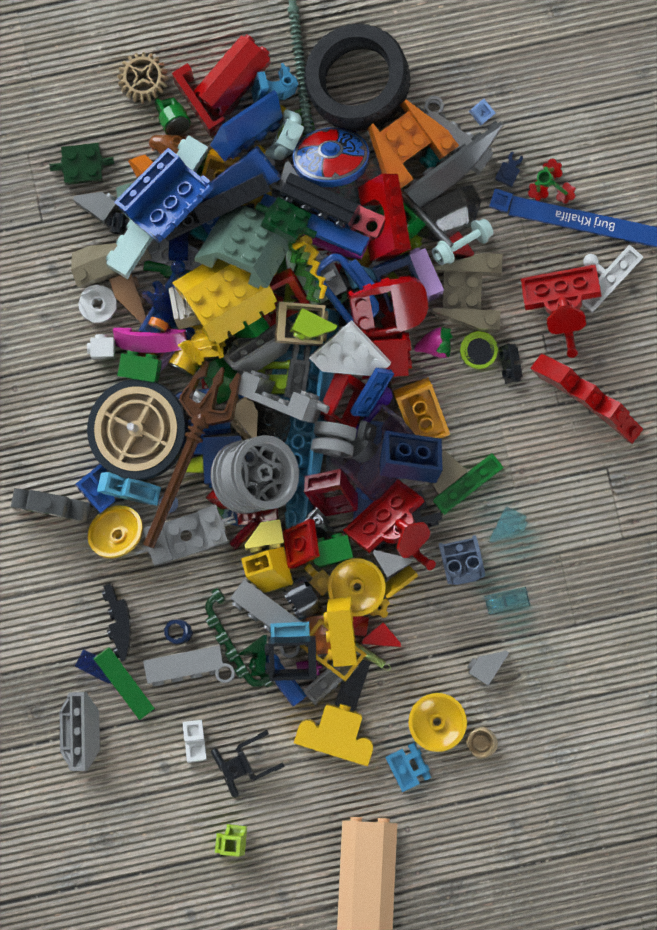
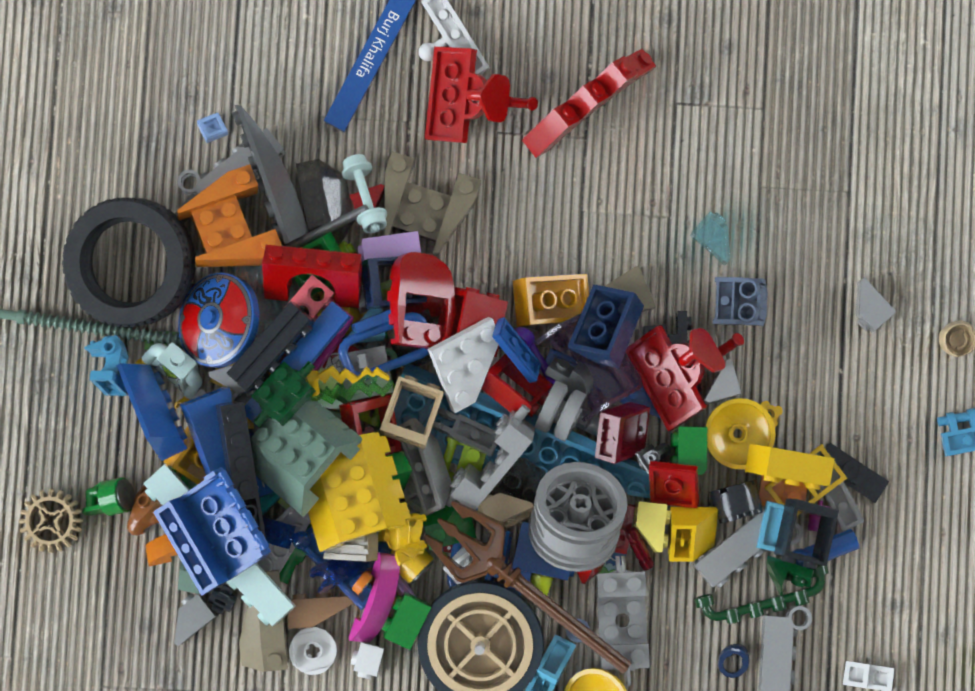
camera: 80 degrees left, 0 degrees up
(81, 163) = (135, 624): dark green plate -> none
(181, 79) = (68, 475): red panel -> none
(232, 76) = (84, 411): red brick -> none
(240, 765) = (914, 629): black piece -> none
(310, 326) = (420, 400): lime slope -> none
(319, 580) = (717, 475): yellow plate -> none
(336, 735) = (906, 506): yellow brick -> none
(360, 625) = (785, 441): red slope -> none
(372, 657) = (824, 438): yellowish green piece -> none
(381, 636) = (804, 422): red slope -> none
(399, 581) = (747, 381): yellow slope -> none
(429, 159) = (252, 205): teal wheel -> none
(436, 343) = (474, 259): dark pink hat -> none
(452, 723) = (939, 381): yellow dish -> none
(467, 484) = (646, 257): green tile -> none
(478, 350) = (496, 212): tile -> none
(500, 200) = (325, 135): blue plate -> none
(507, 600) = (801, 262): clear light blue slope -> none
(508, 172) = (293, 117): dark blue plate -> none
(508, 355) = (512, 180): black hinge -> none
(546, 178) = (317, 74): red plant -> none

